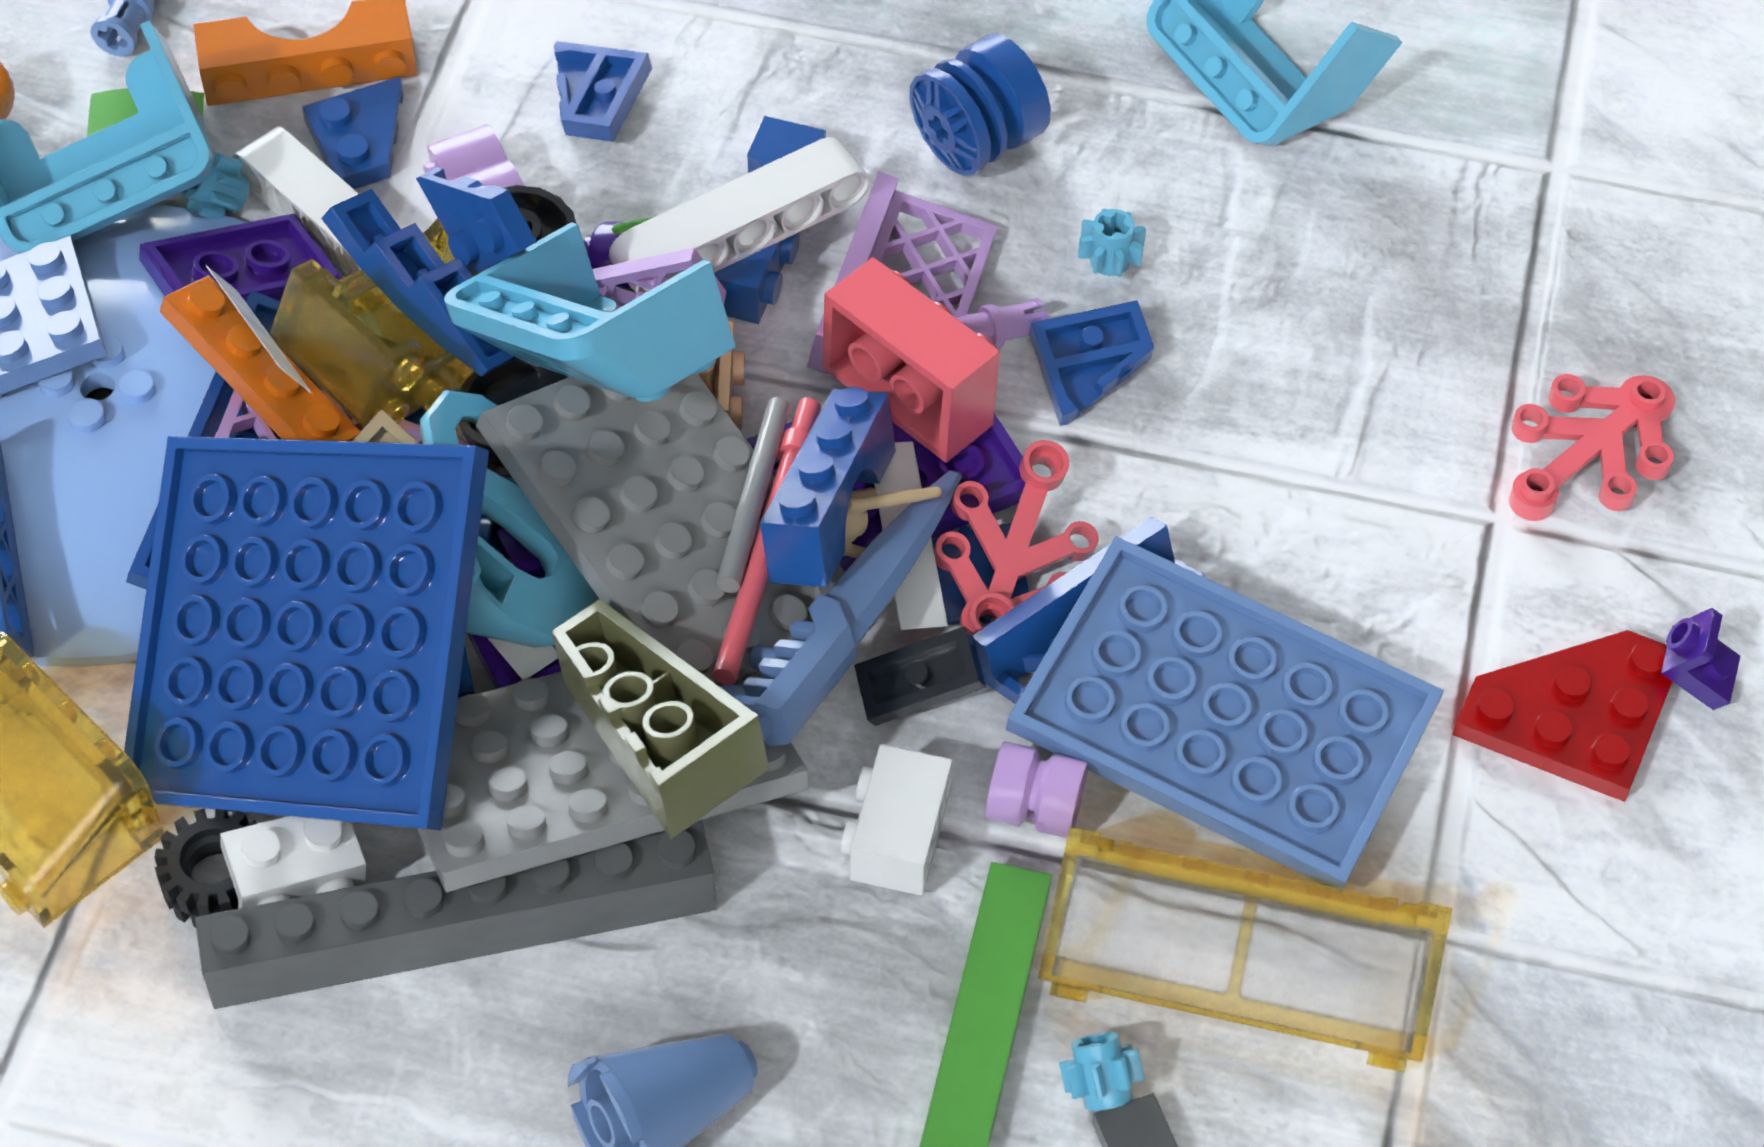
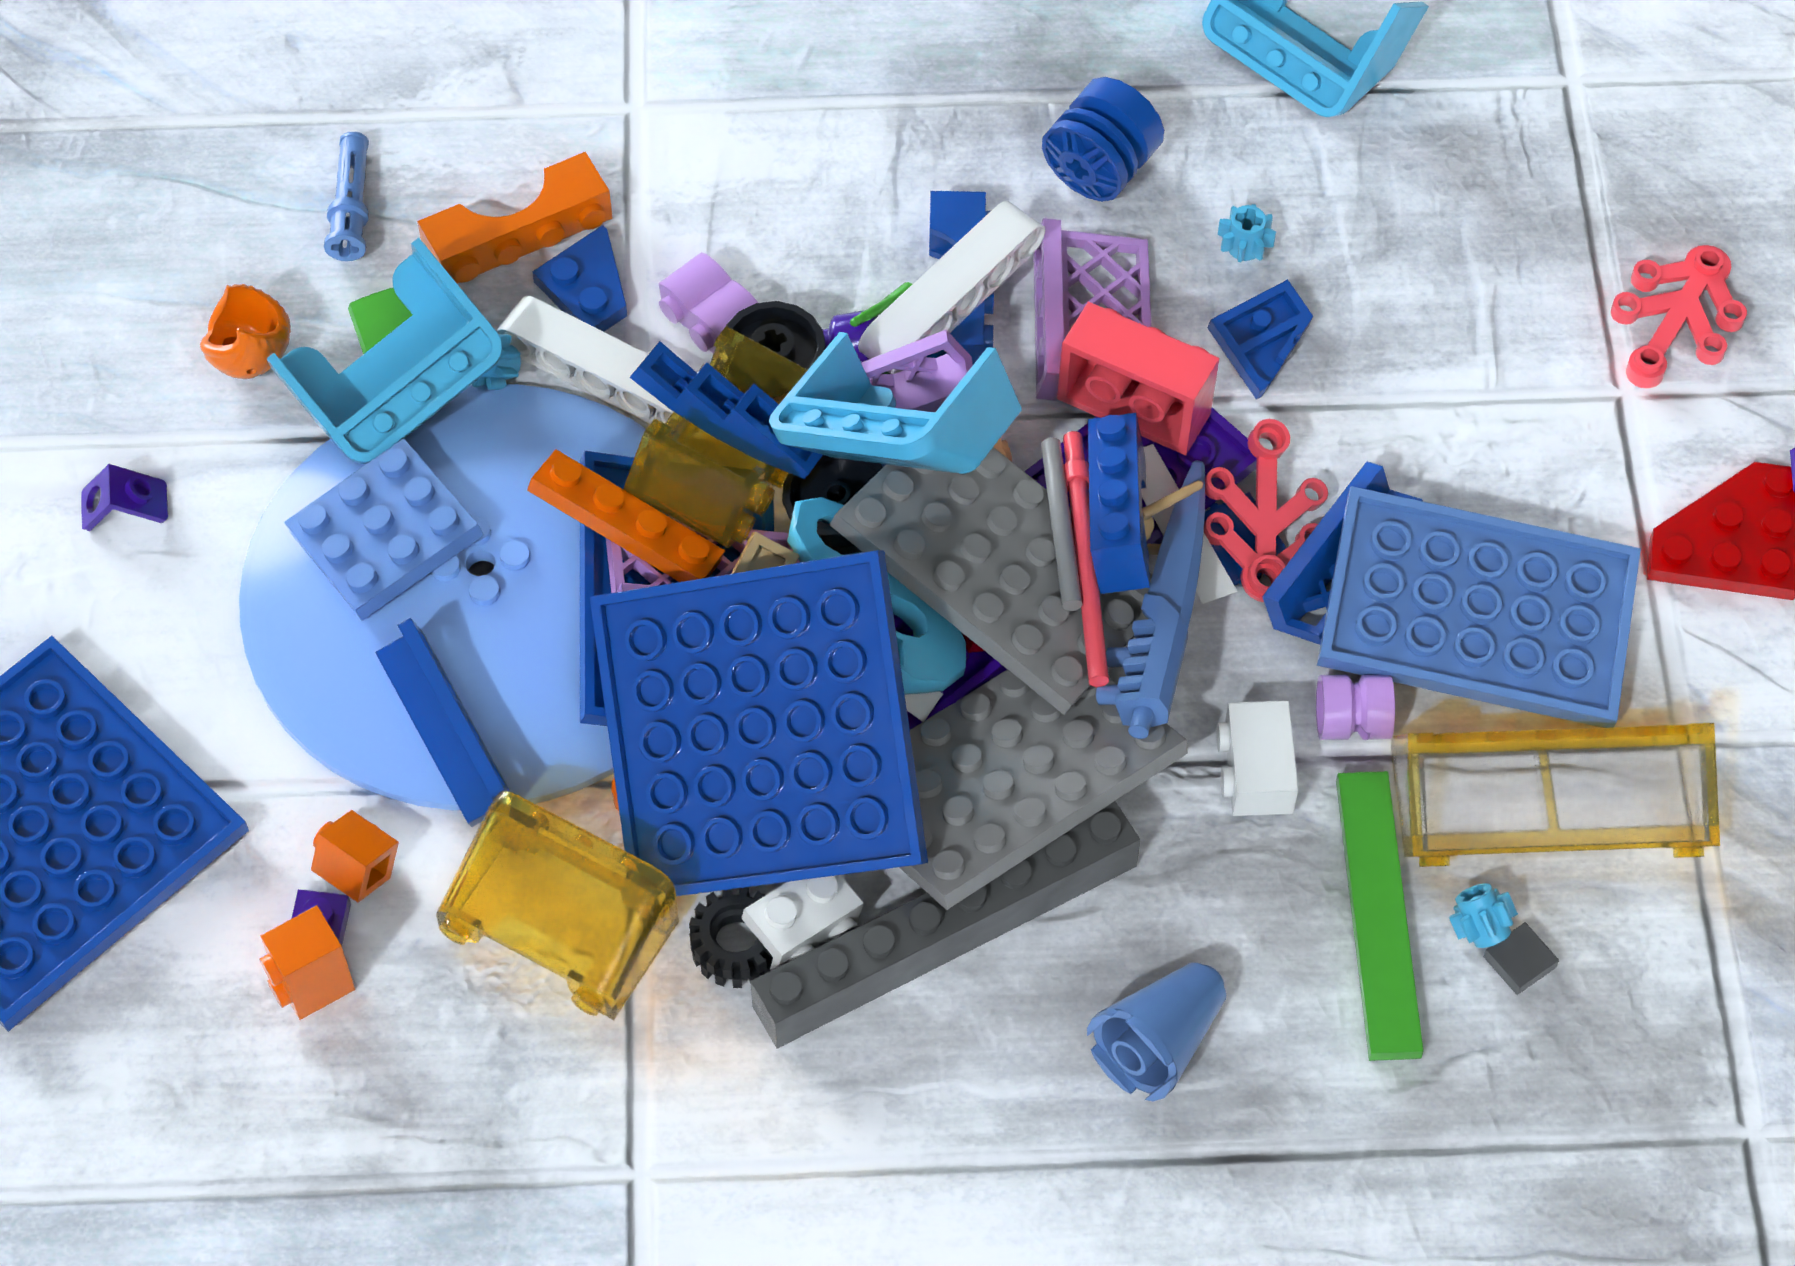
camera: 15 degrees left, 5 degrees up
(245, 255) = (559, 416): dark purple tile -> none
(259, 330) = (620, 486): white sticker -> none
(478, 219) = (765, 350): blue wing -> none
(597, 88) = (773, 195): blue wing -> none
(660, 717) = (1062, 726): olive wedge -> none
(920, 676) = (1232, 638): black plate -> none
(1005, 322) = (1188, 322): lavender pin -> none

